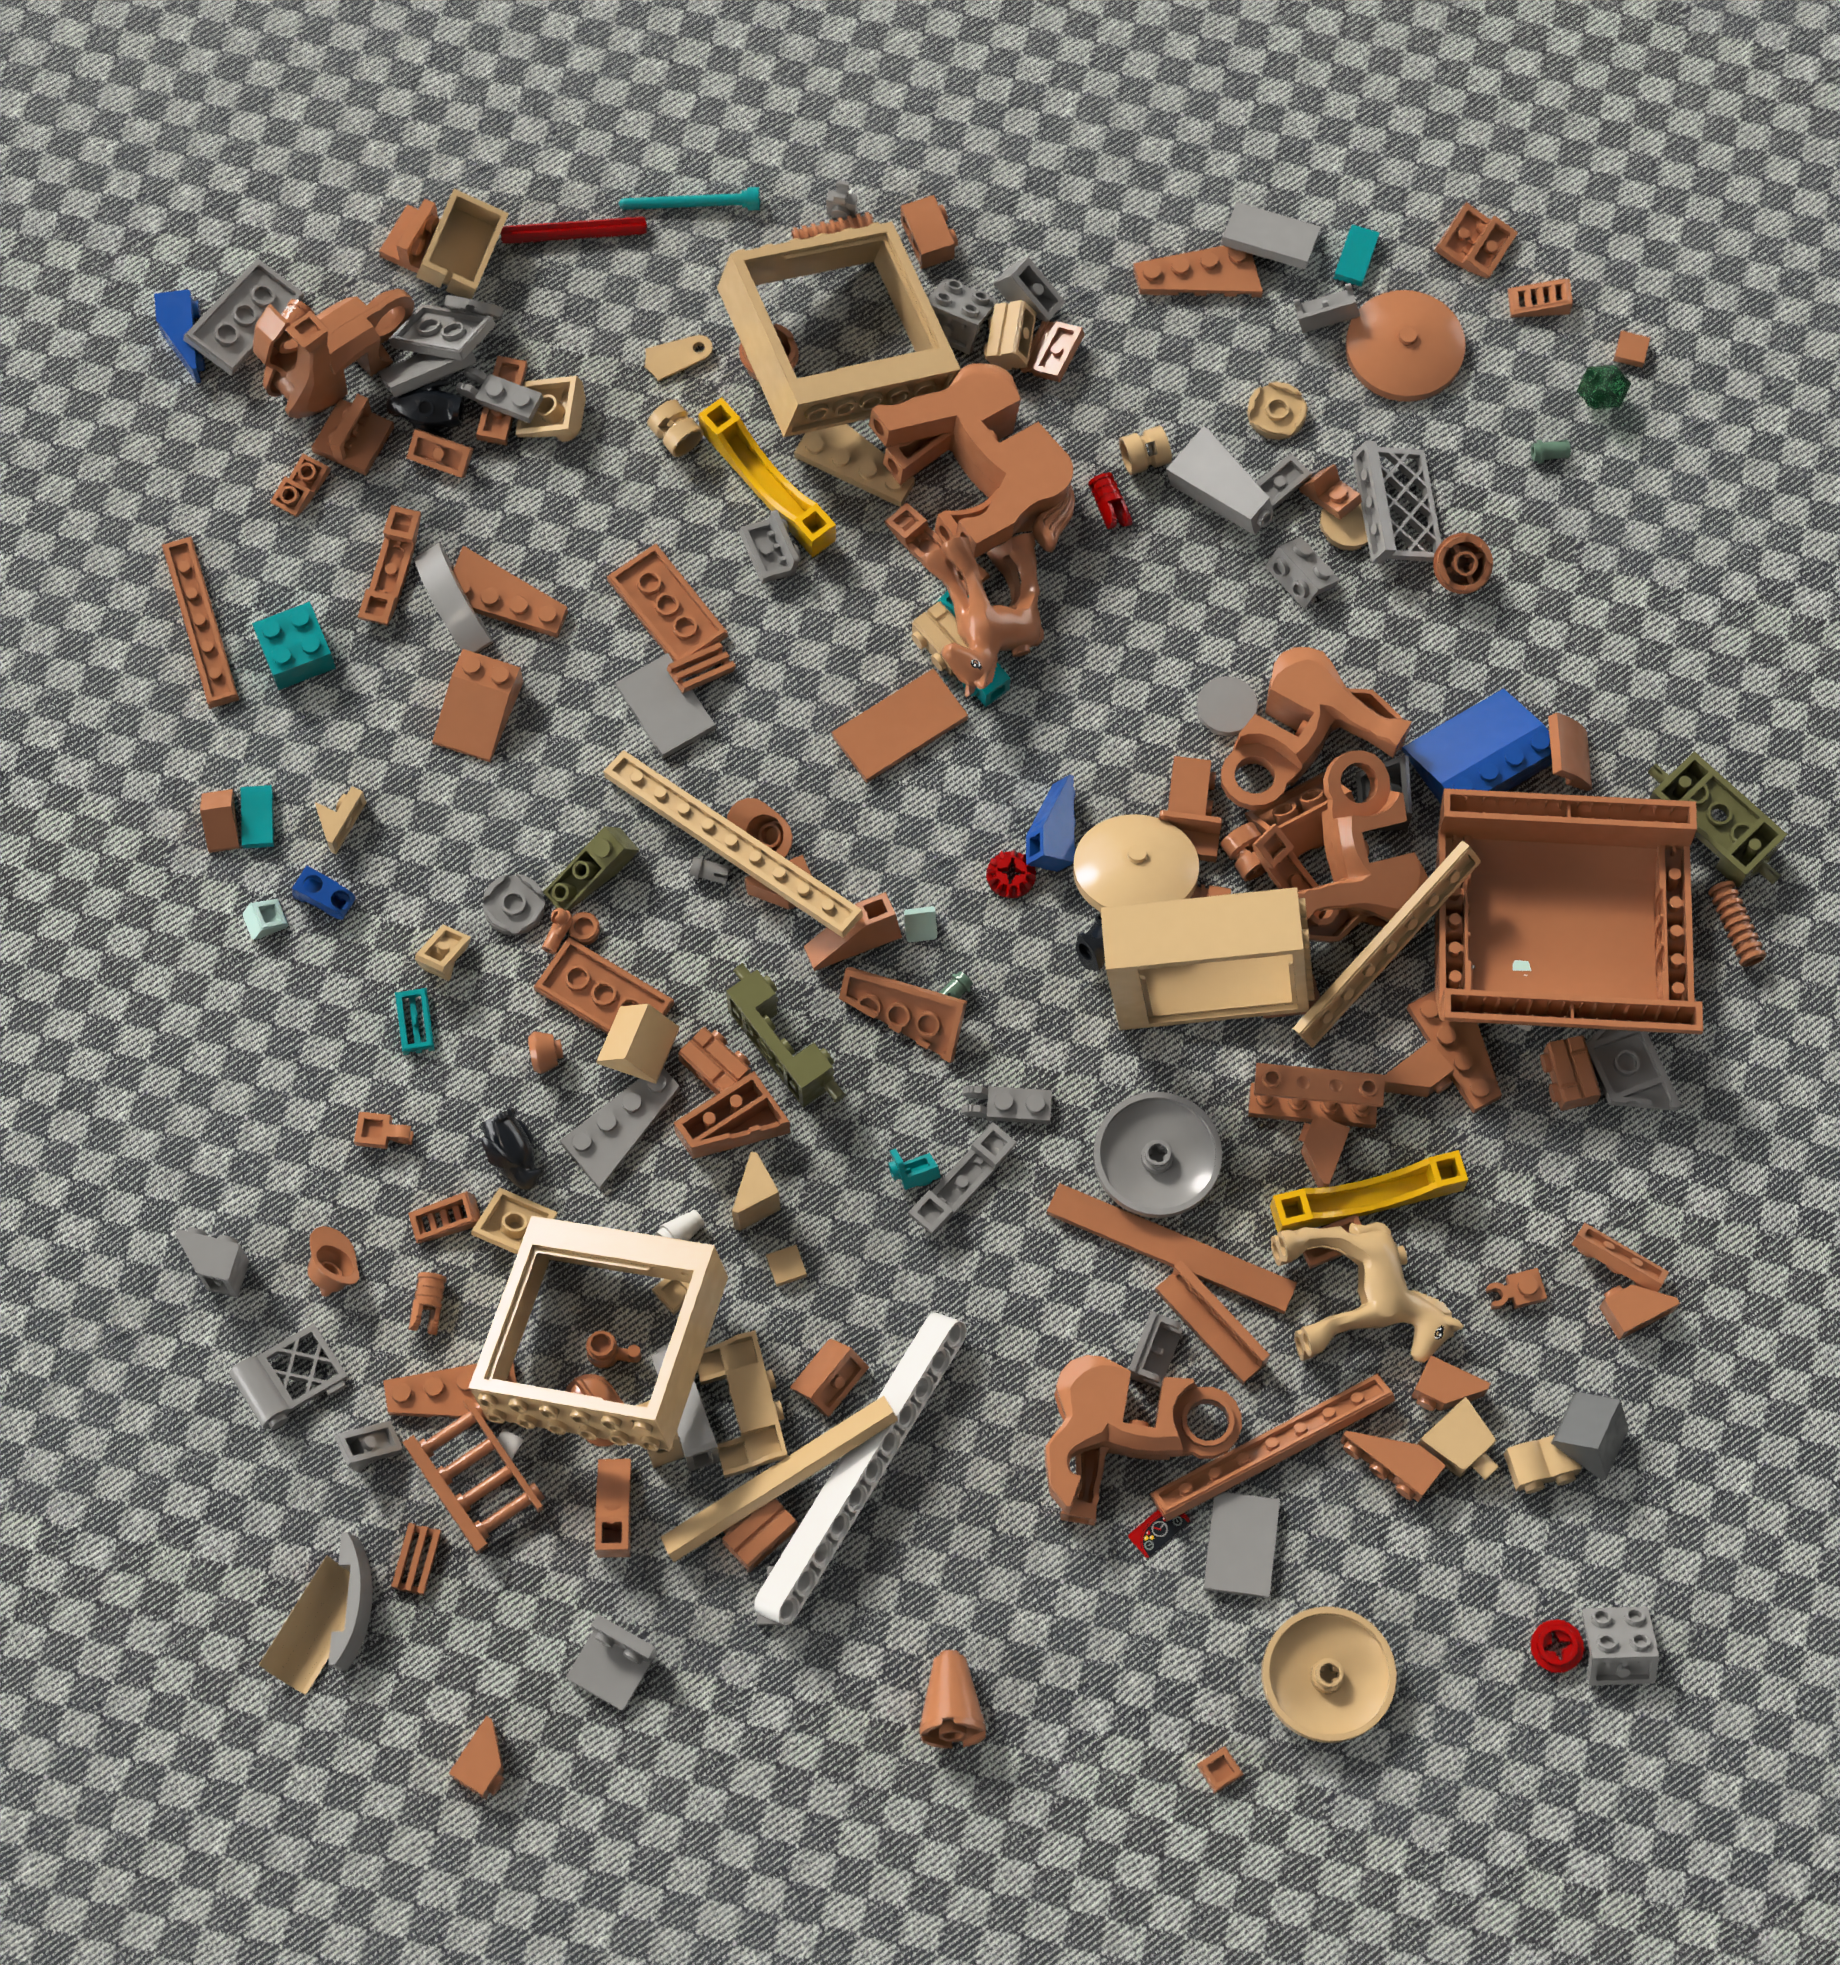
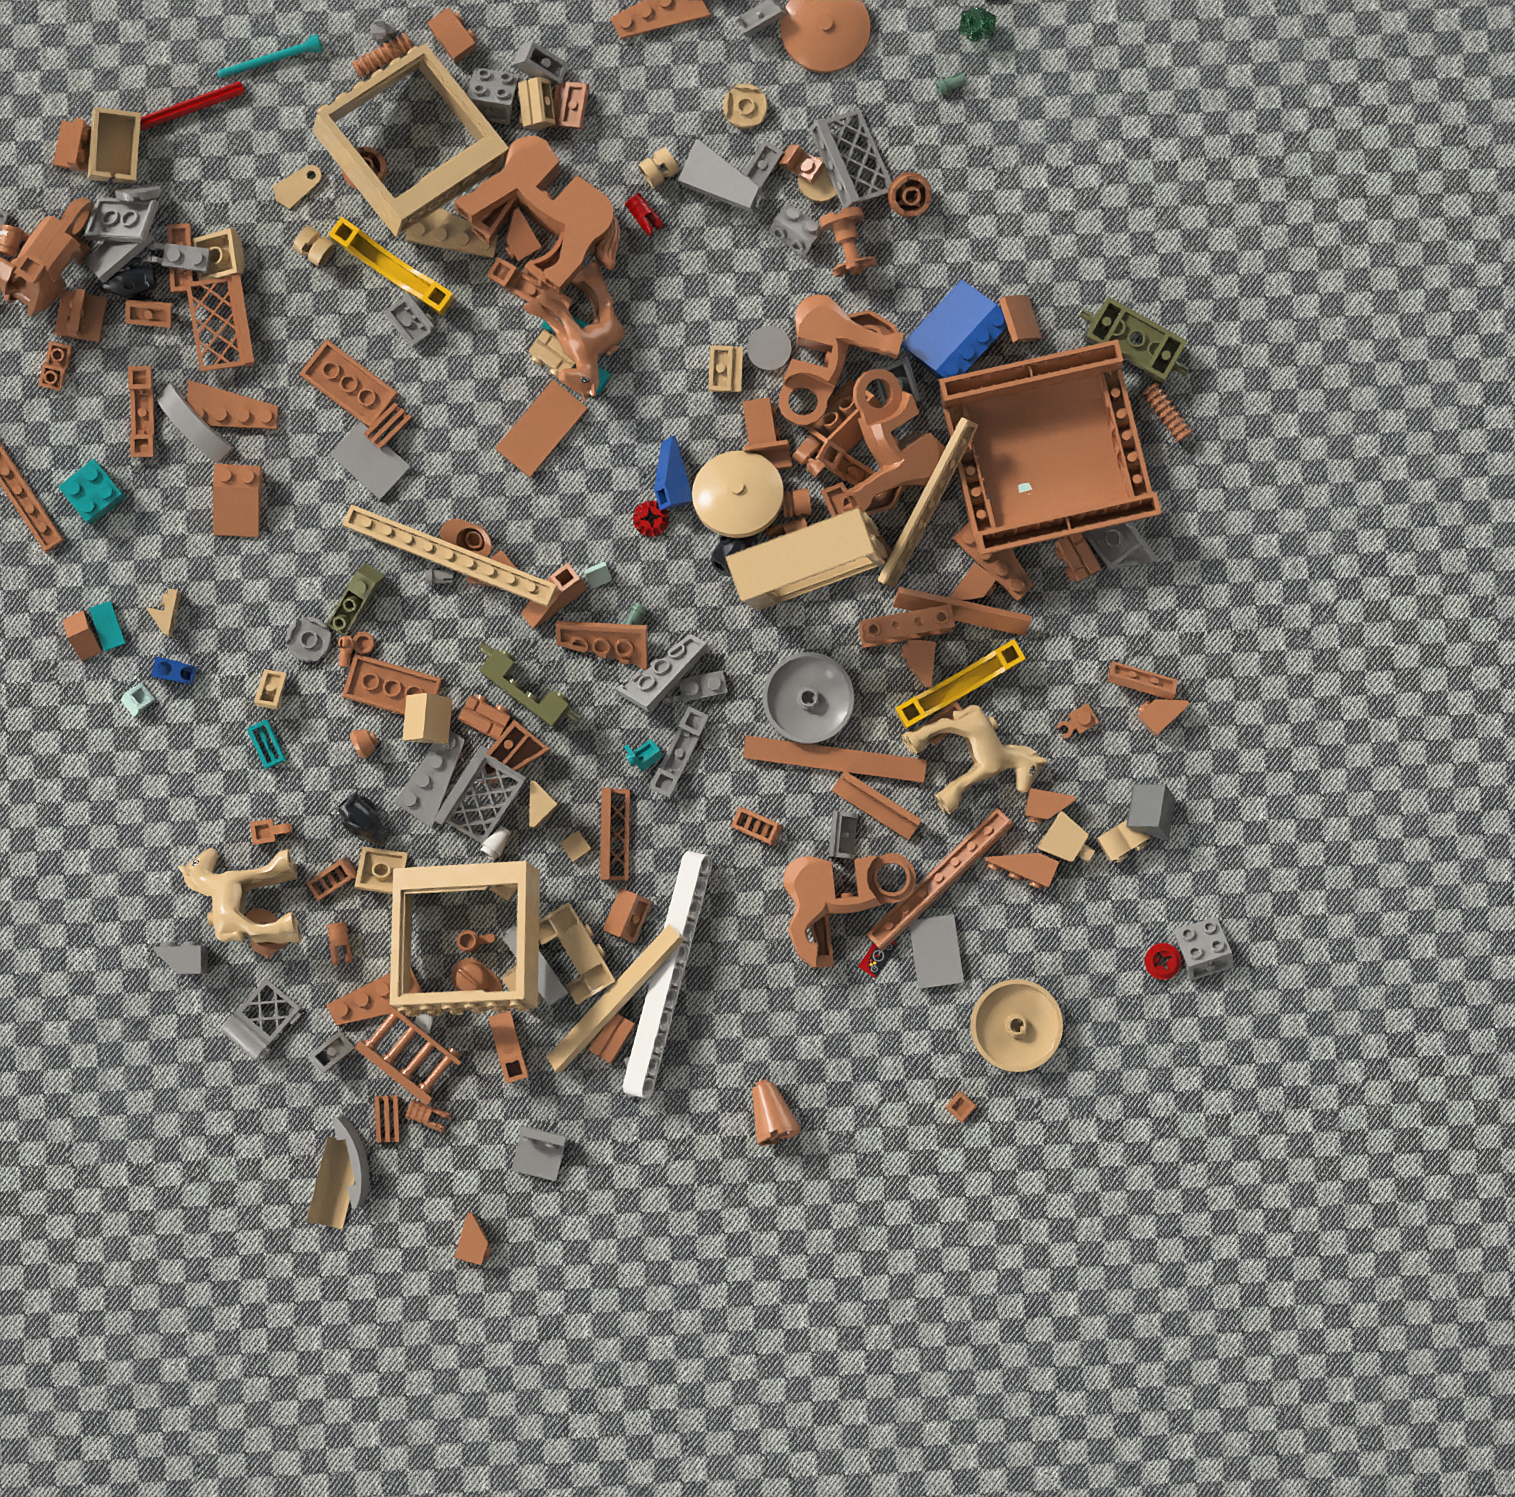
camera: 15 degrees left, 15 degrees up
(300, 1198) = (229, 897): none -> tan animal
(468, 1566) = (422, 1114): none -> nougat hinge
(552, 487) = (239, 317): none -> nougat fence
(653, 1143) = (466, 782): none -> light grey fence
(831, 1262) = (605, 857): none -> nougat fence
(943, 485) = (520, 237): none -> nougat slope
(951, 1081) = (655, 682): none -> light grey wing
(1059, 1326) = (775, 833): none -> nougat slope
(1162, 714) = (725, 368): none -> tan plate
(1366, 579) = (845, 233): none -> nougat piece
(1407, 1103) = (965, 611): none -> nougat tile

